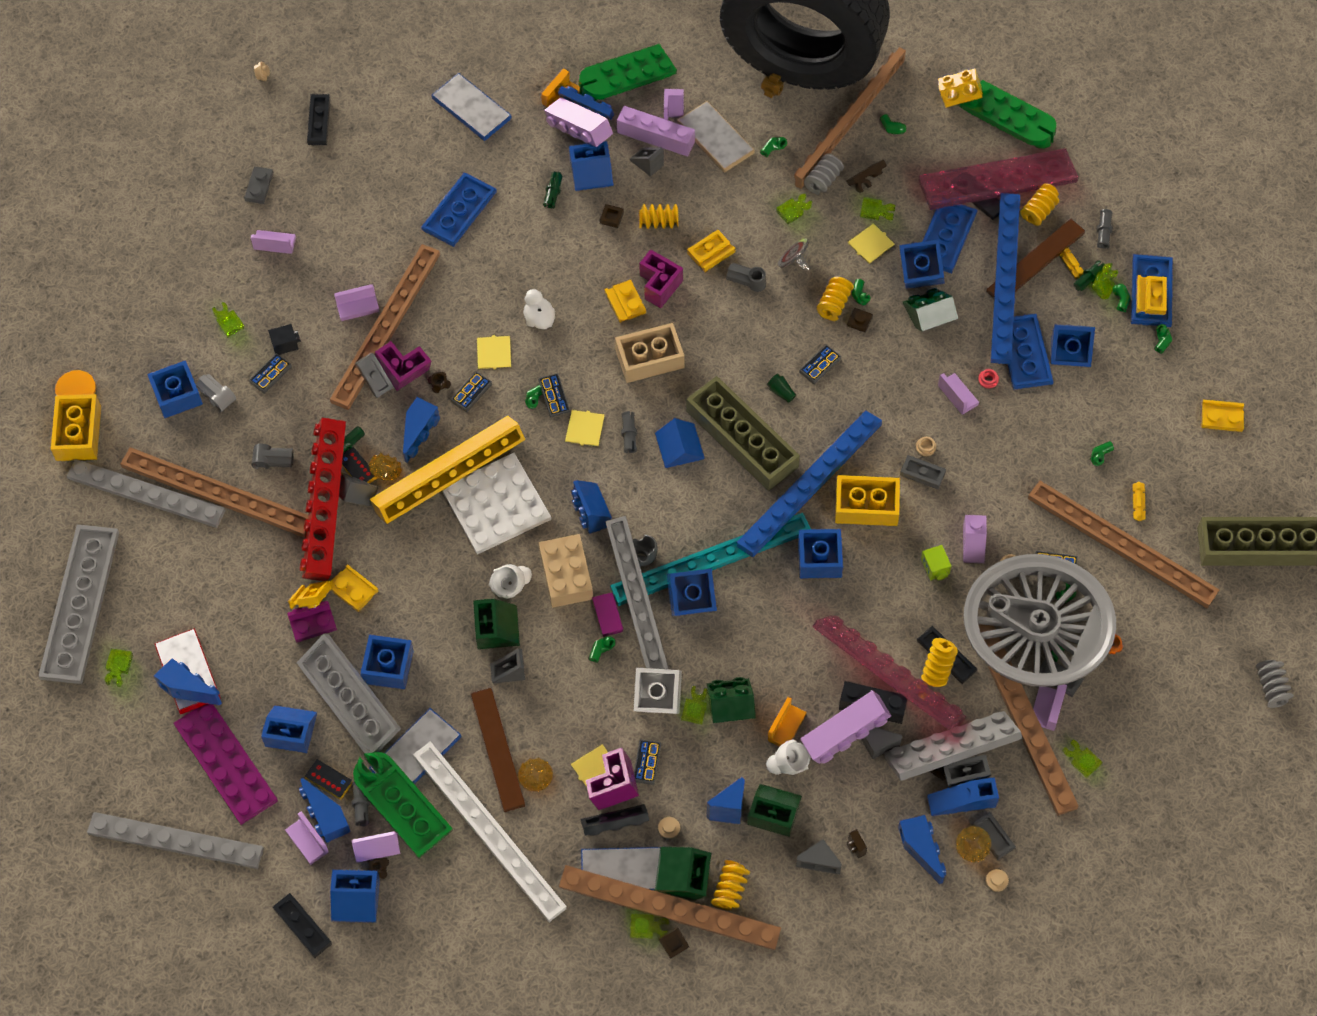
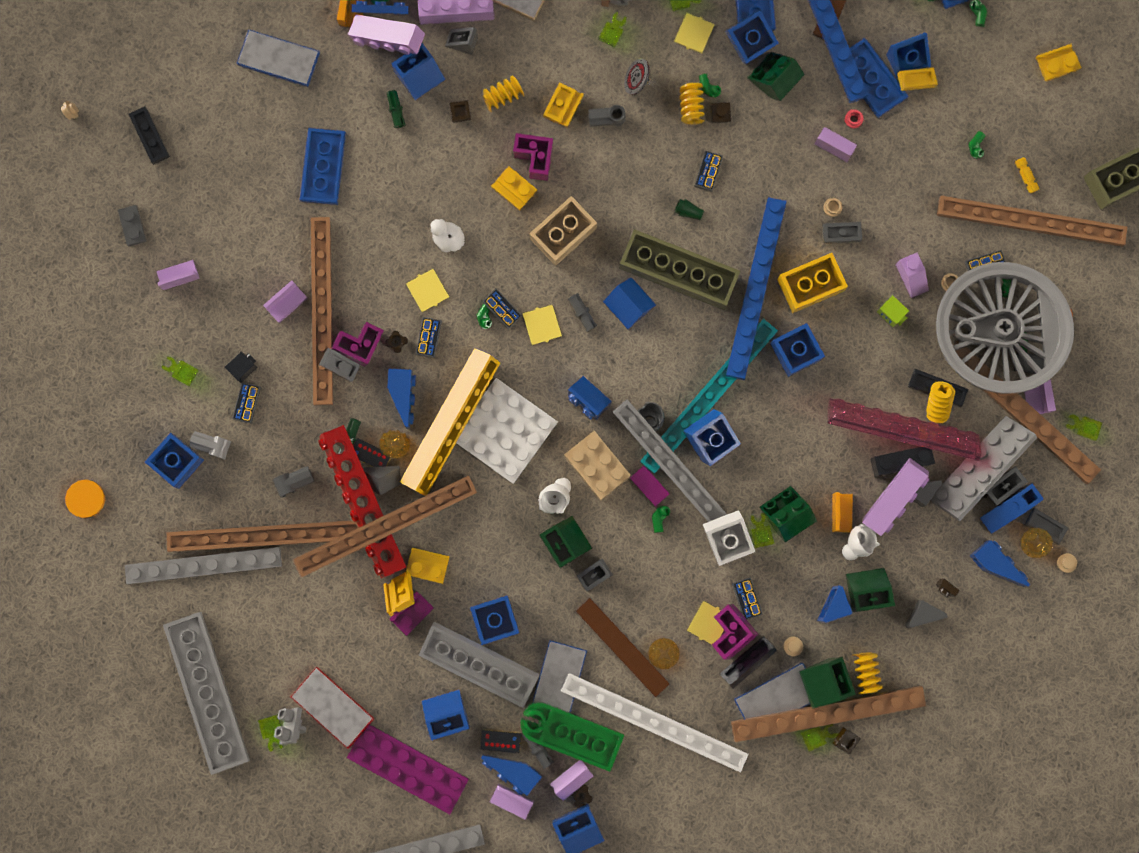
camera: 30 degrees left, 20 degrees up
(76, 427) = (109, 538): yellow brick -> none
(139, 670) = (291, 727): none -> light grey hips
(182, 684) = (336, 726): blue slope -> none
(332, 524) = (384, 526): none -> medium nougat plate
(1070, 370) = (917, 79): none -> yellow tile

